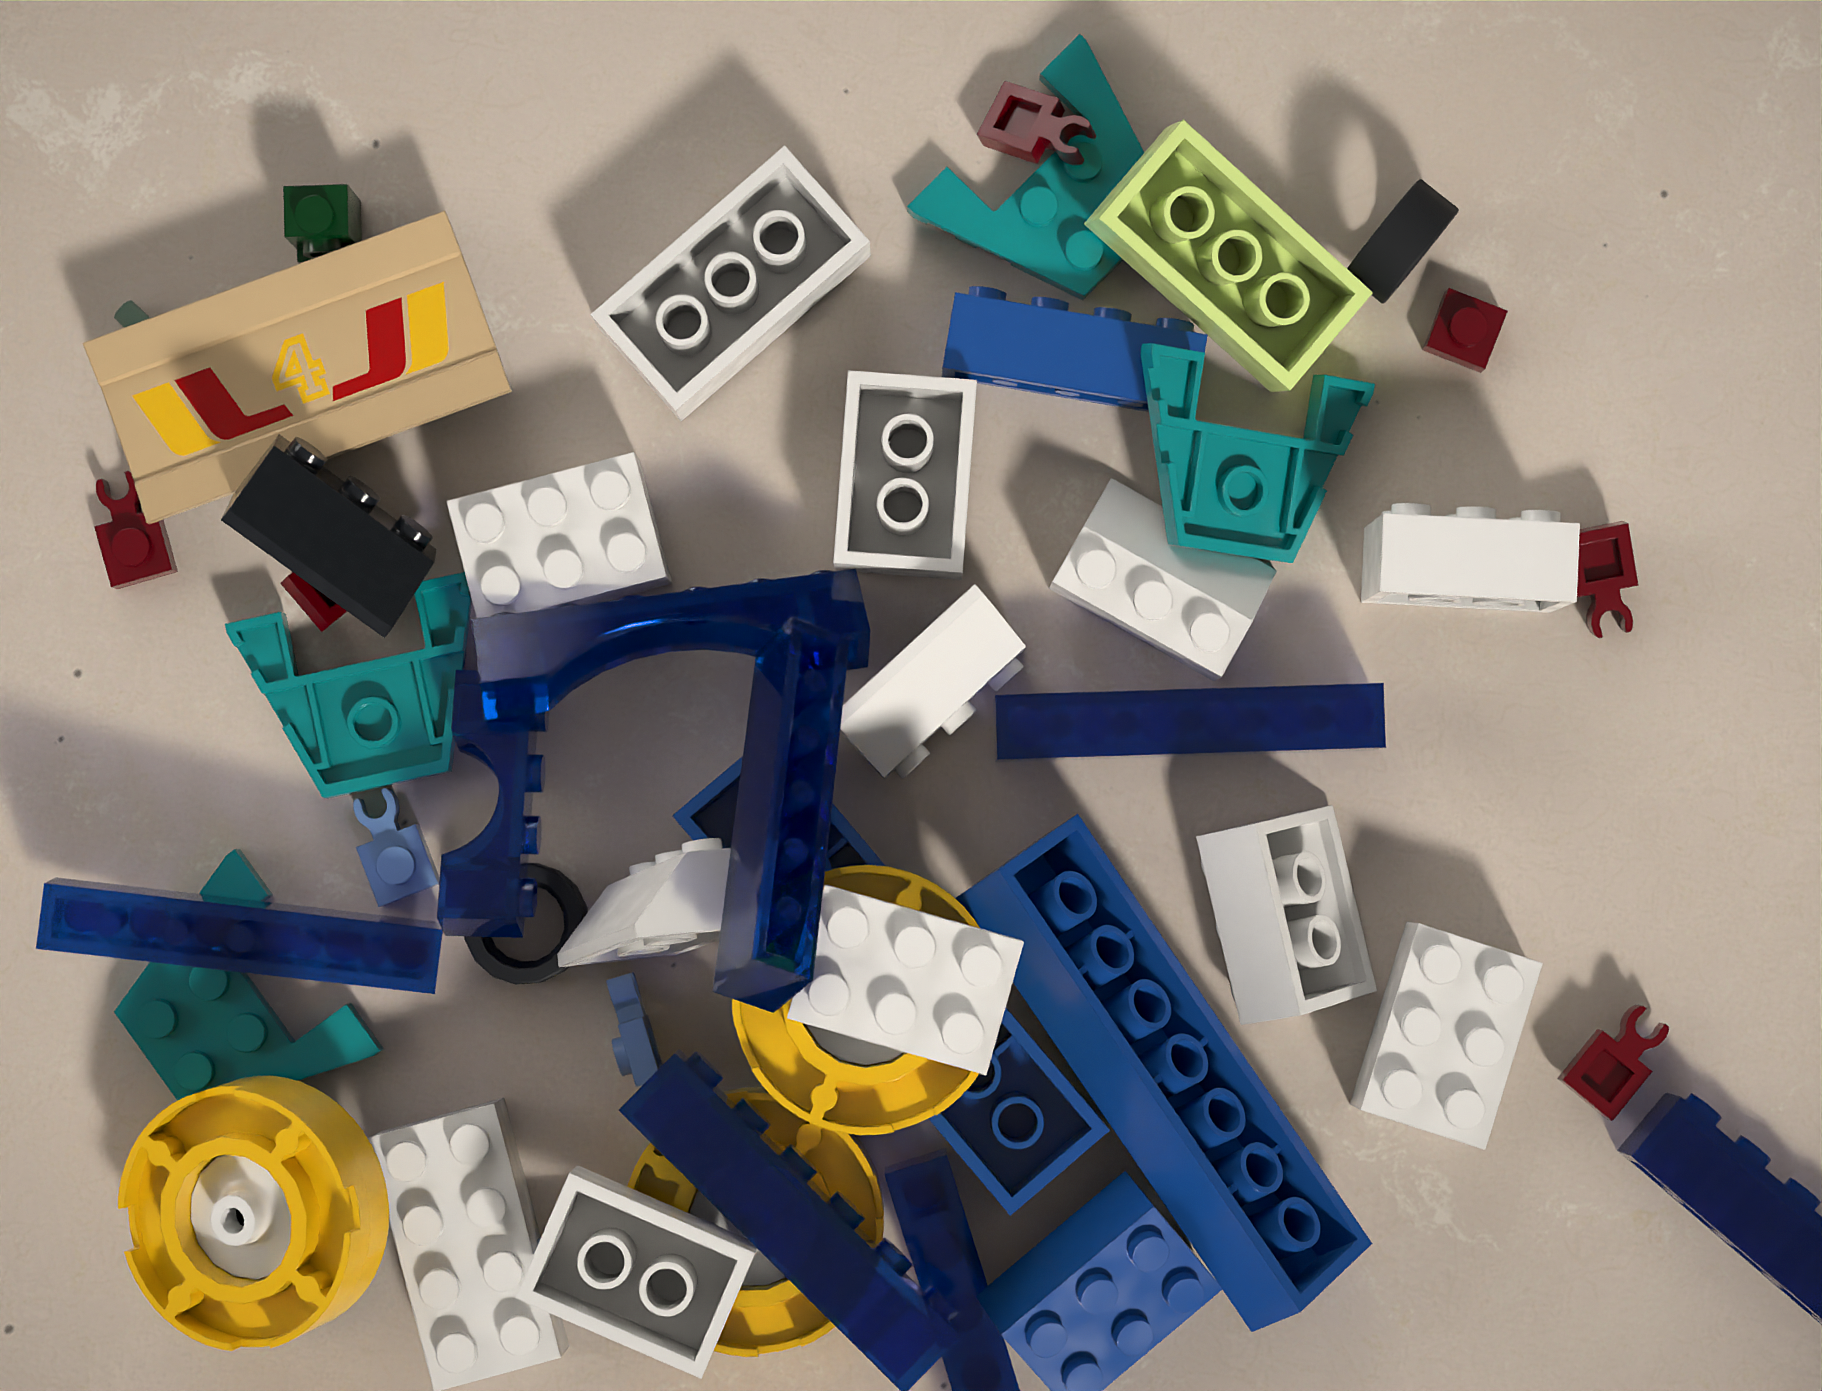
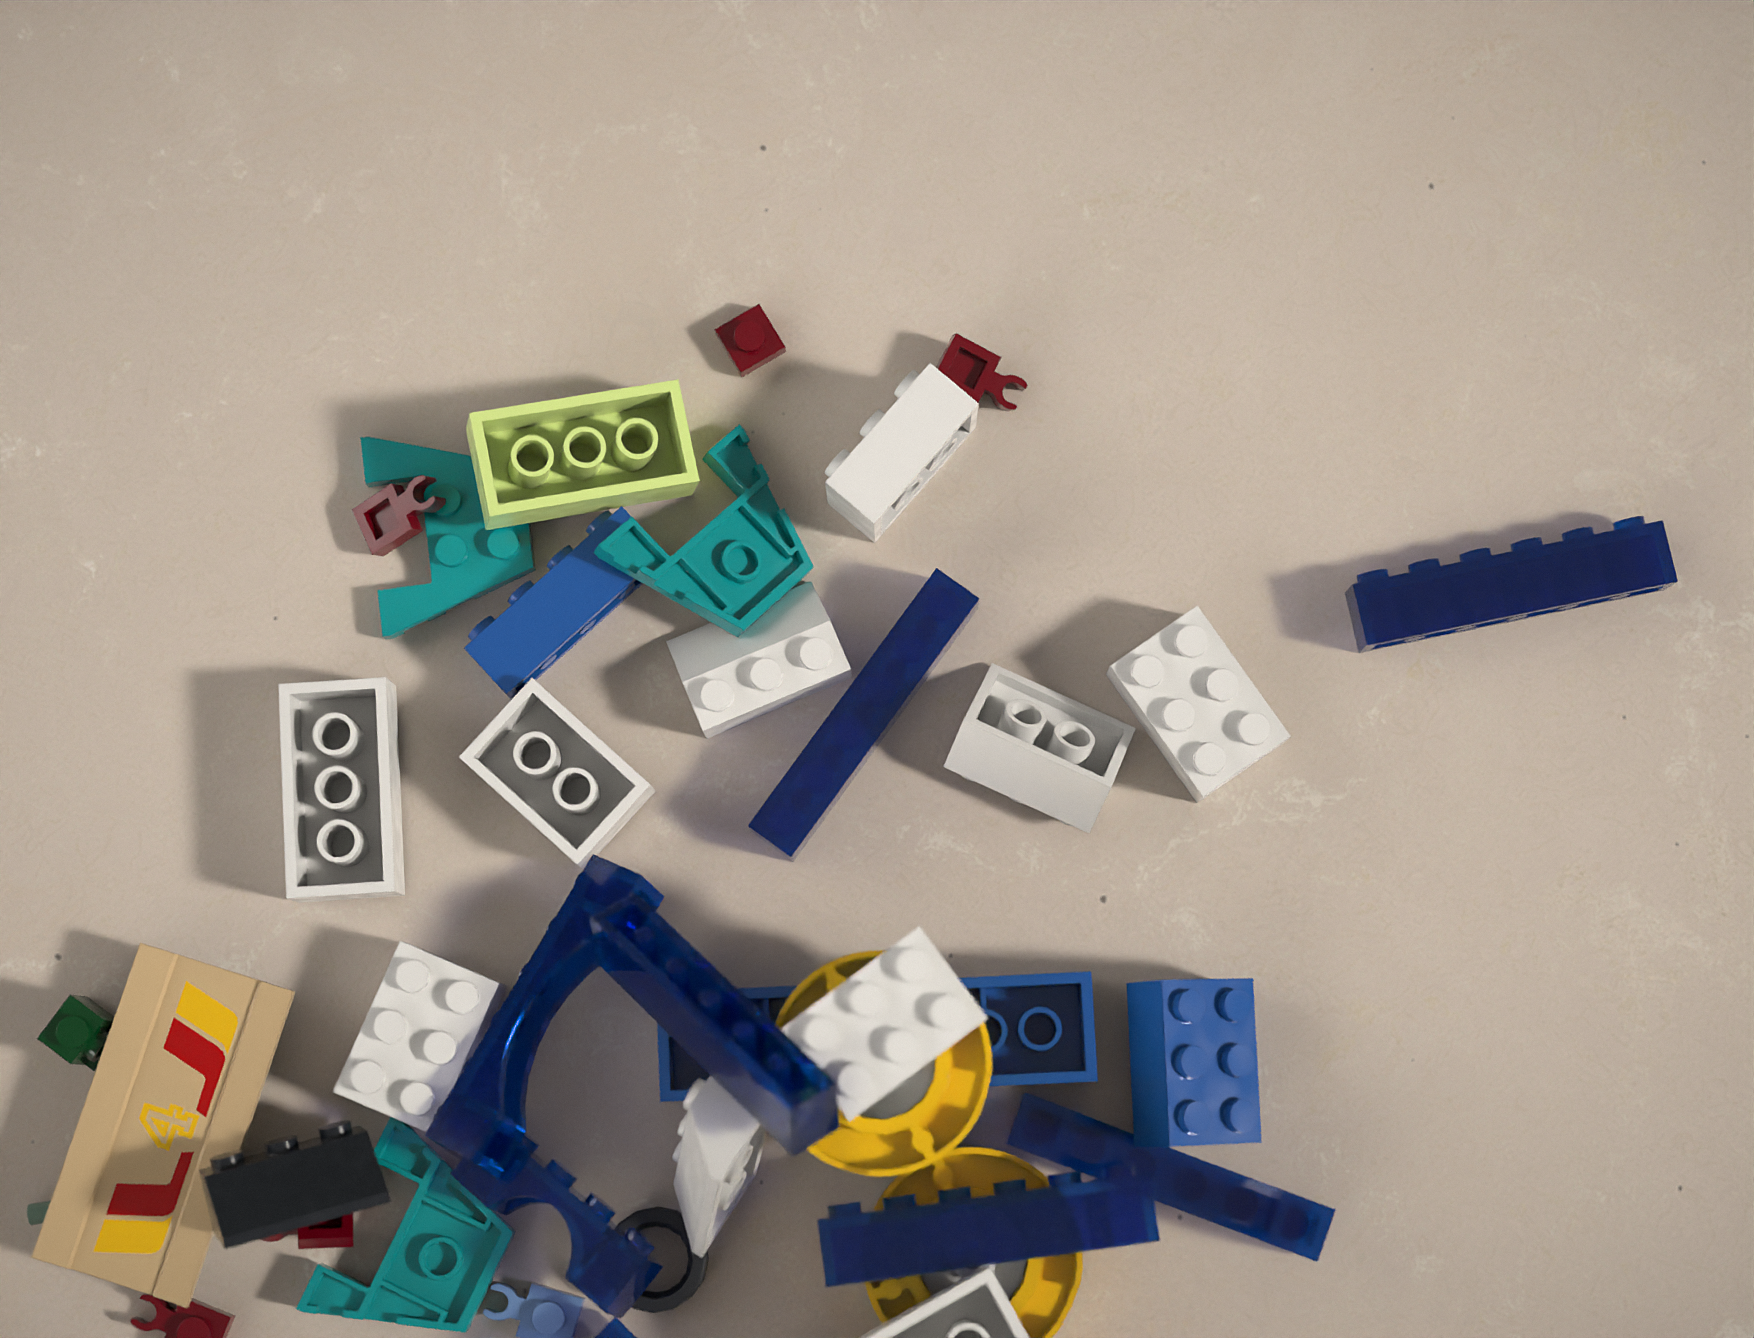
camera: 50 degrees left, 5 degrees down
(636, 1048) = (796, 1248): medium blue plate -> none
(932, 684) = (708, 863): white slope -> none
(1168, 1076) = (1085, 905): blue brick -> none
(1402, 240) = (659, 334): black tyre -> none
(1608, 1069) = (1301, 617): dark red plate -> none

